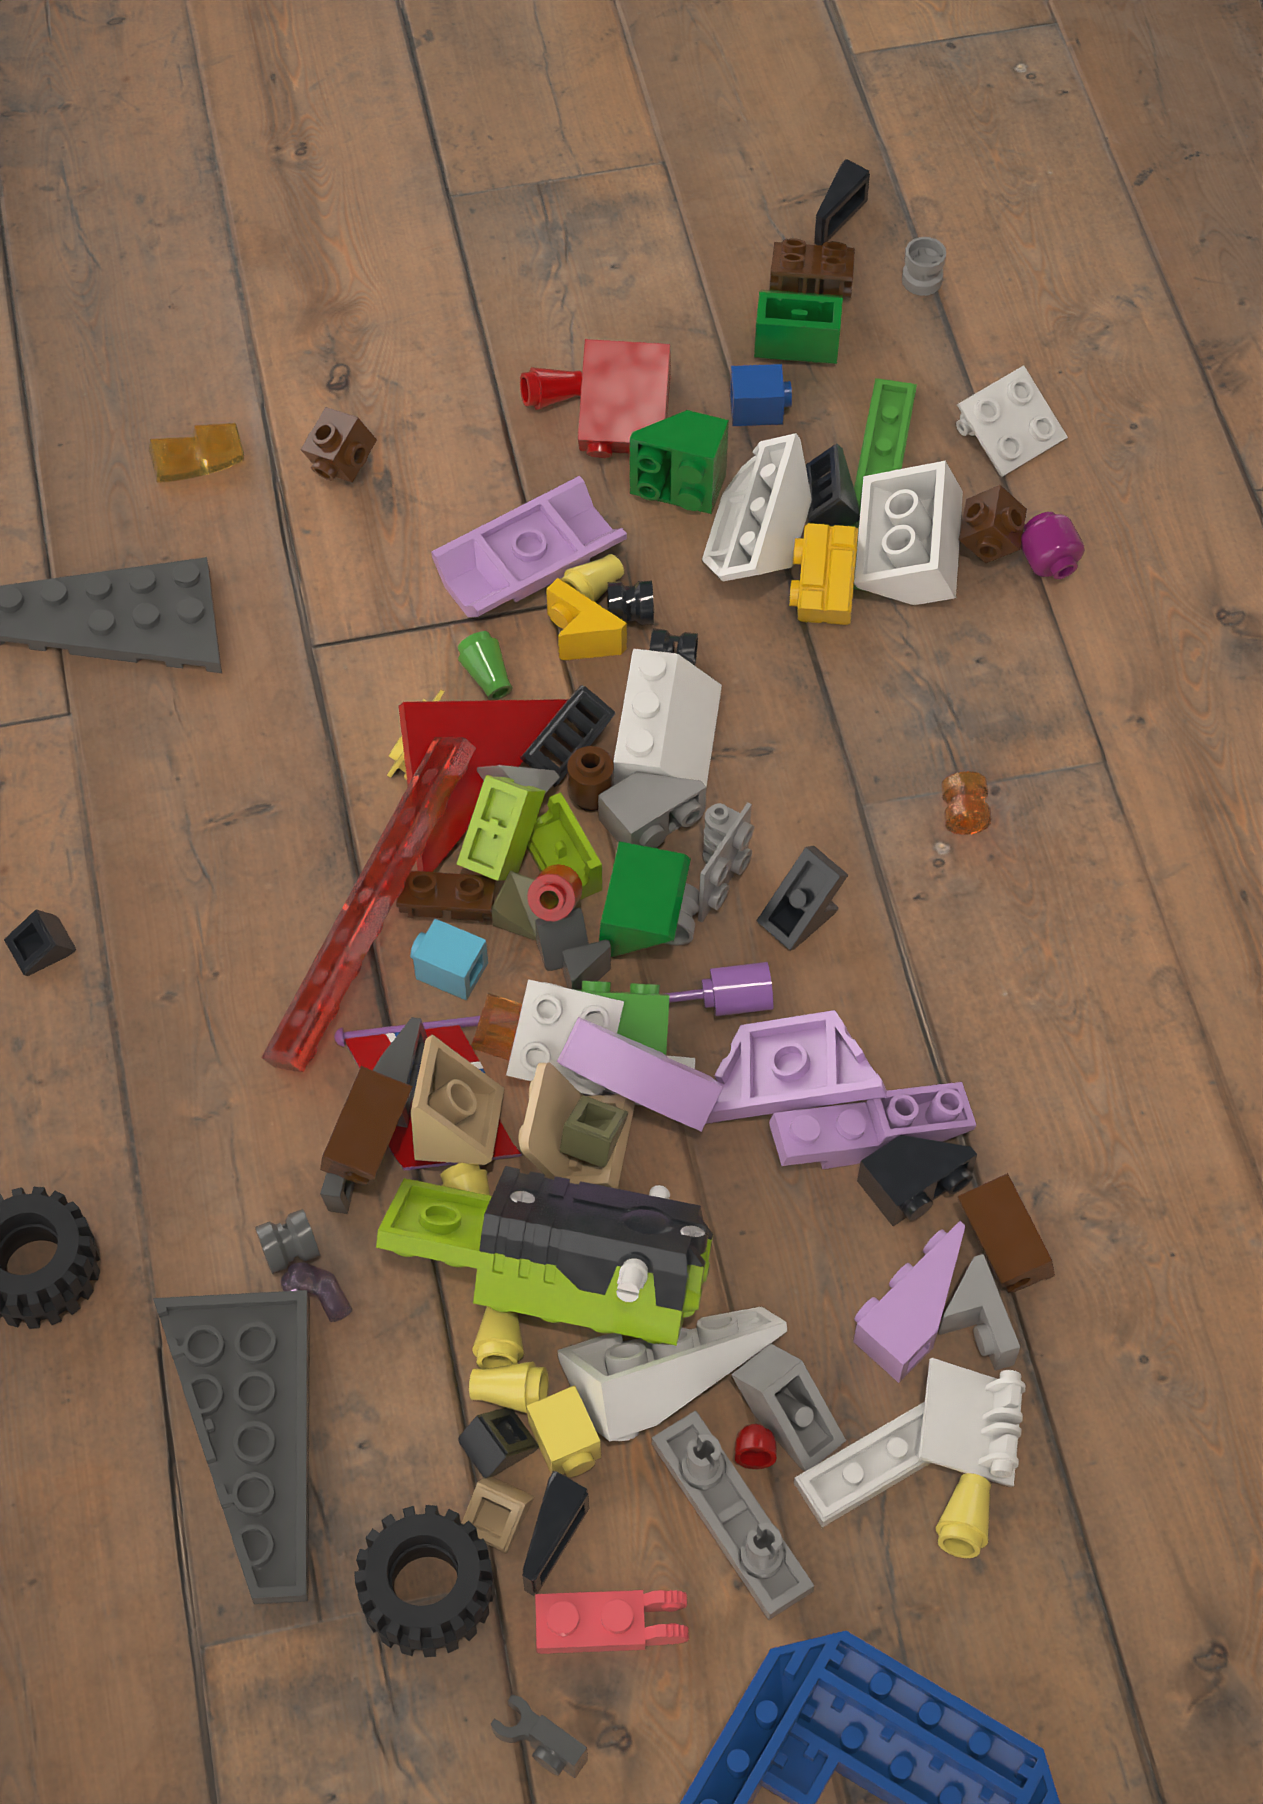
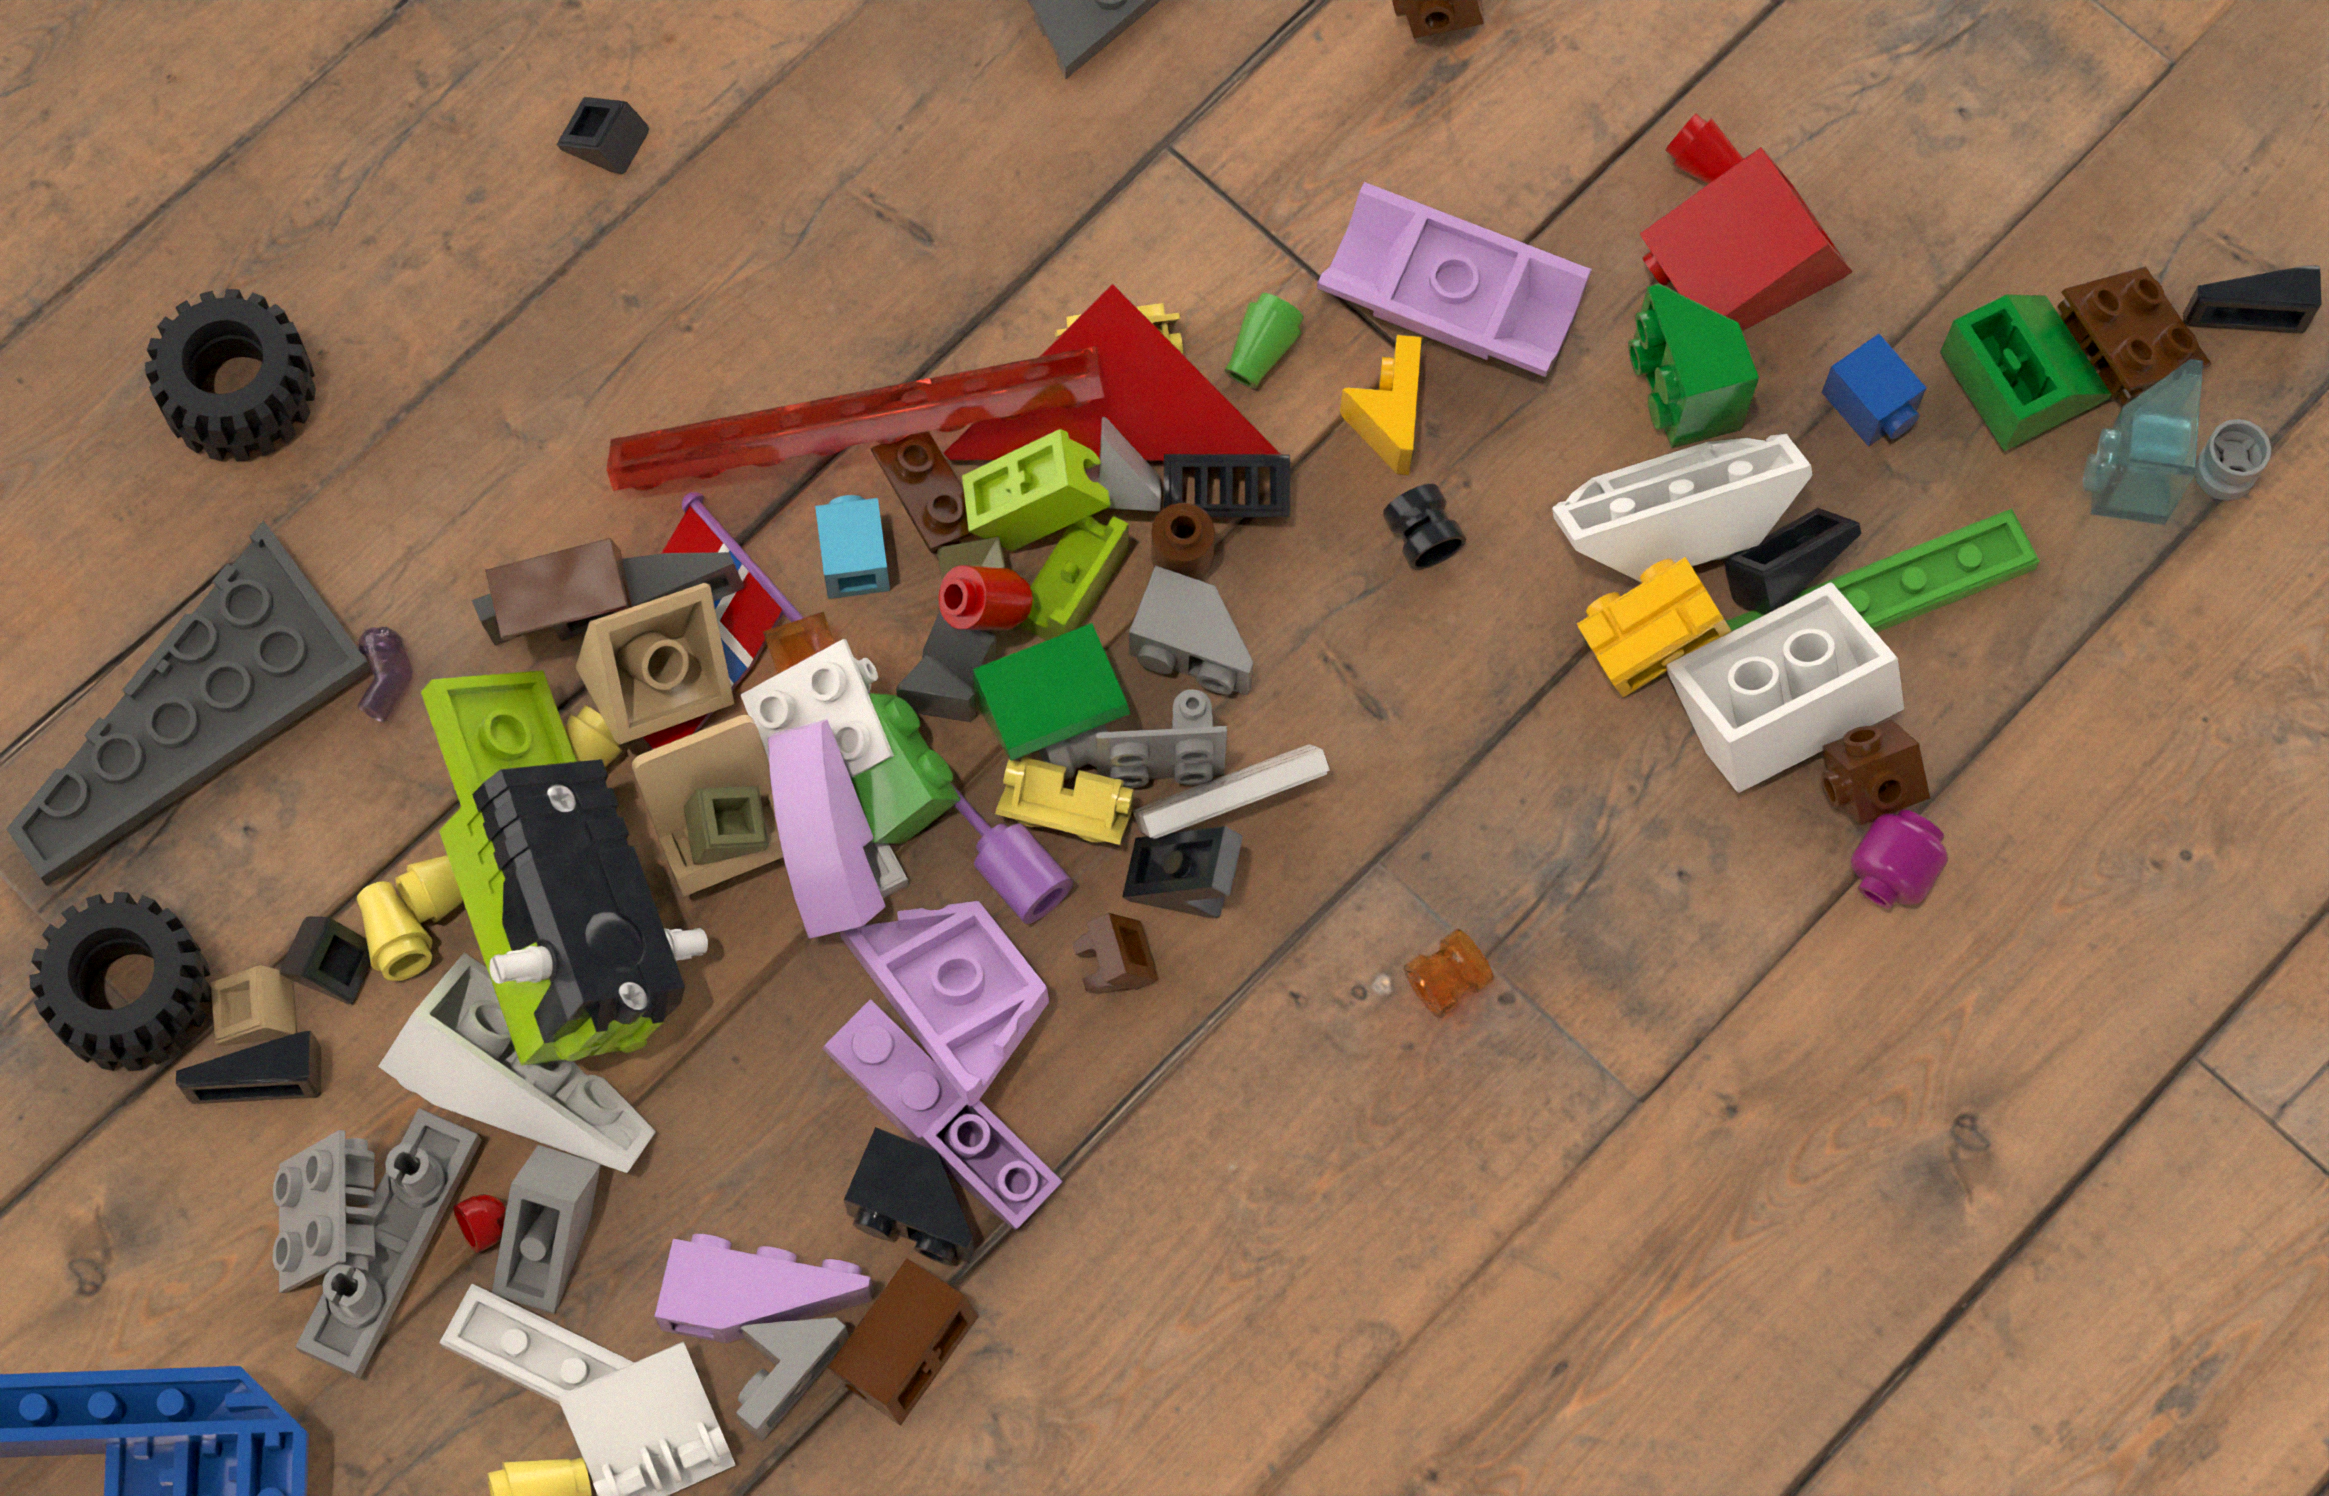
camera: 55 degrees right, 10 degrees up
(286, 1241) = (409, 604): dark grey wheel -> none
(552, 1745) = (30, 1217): dark grey plate -> none
(564, 1432) = (367, 1016): light yellow brick -> none
(593, 577) = (1460, 375): light yellow cone -> none
(605, 1621) = (197, 1185): coral hinge -> none
(632, 602) = (1460, 438): black wheel -> none
(666, 718) = (1317, 581): white slope -> none
(685, 1541) = (313, 1214): none -> light grey hinge
(697, 950) = (1093, 810): none -> light yellow hinge
(768, 847) = (1231, 791): none -> white tile
(831, 966) = (1120, 953): none -> reddish brown tile
(899, 289) = (2148, 451): none -> clear light blue slope
(1010, 421) = (2064, 705): white hinge -> none

